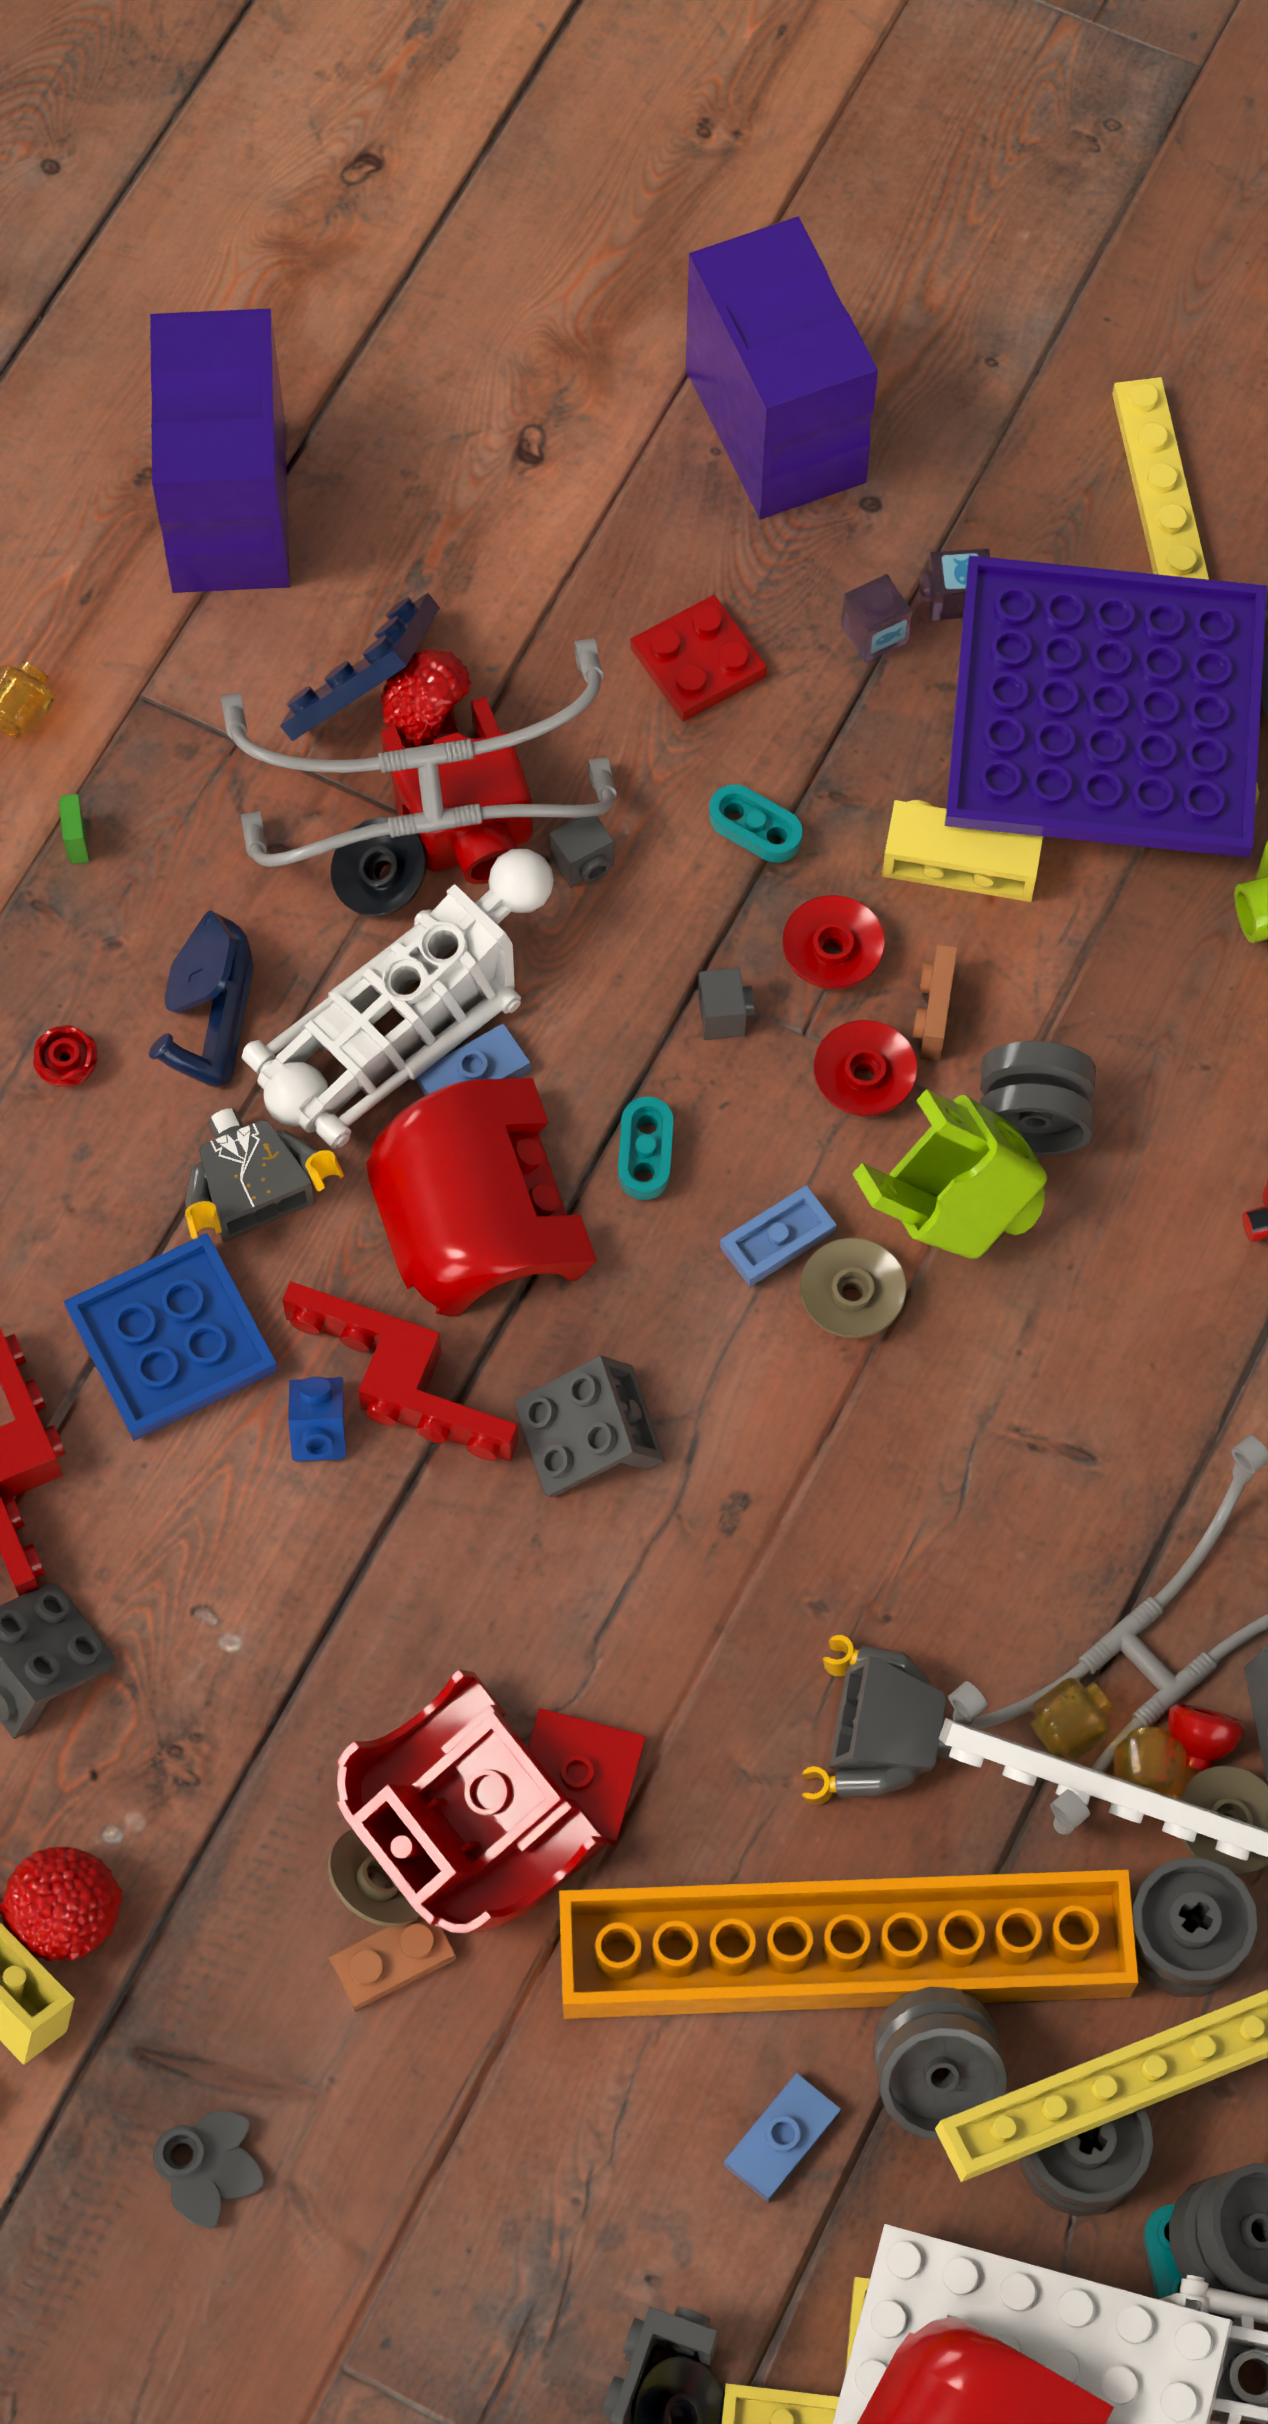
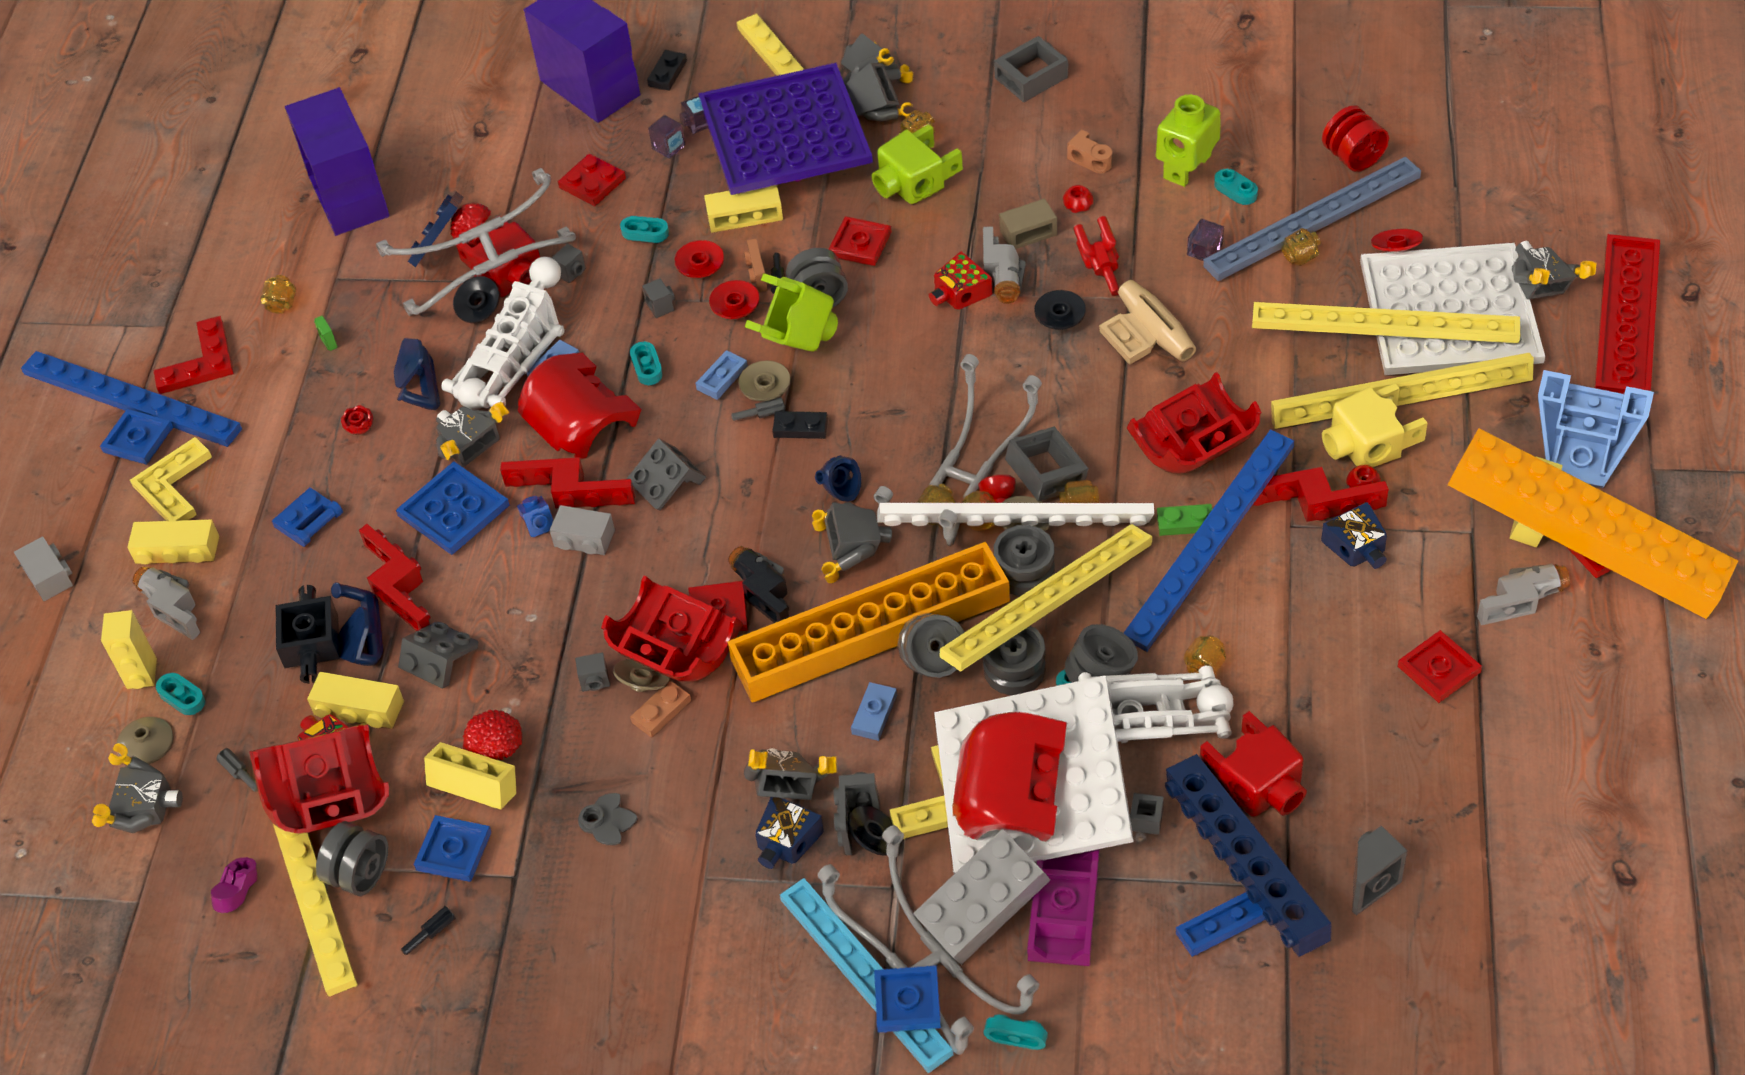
camera: 15 degrees left, 15 degrees down
(294, 1830) = (592, 672): none -> dark grey plate
(388, 1495) = (582, 530): none -> light grey piece
(517, 2346) = (786, 832): none -> torso
(561, 2229) = (786, 773): none -> dark grey torso
(685, 1761) = (762, 582): none -> black plate
(826, 1349) = (761, 409): none -> dark grey axle
(885, 1413) = (800, 424): none -> black plate
(908, 1584) = (837, 480): none -> dark blue helmet
(937, 445) = (667, 70): none -> black plate
(970, 1039) = (777, 270): none -> black axle
(1158, 1022) = (860, 240): none -> red plate

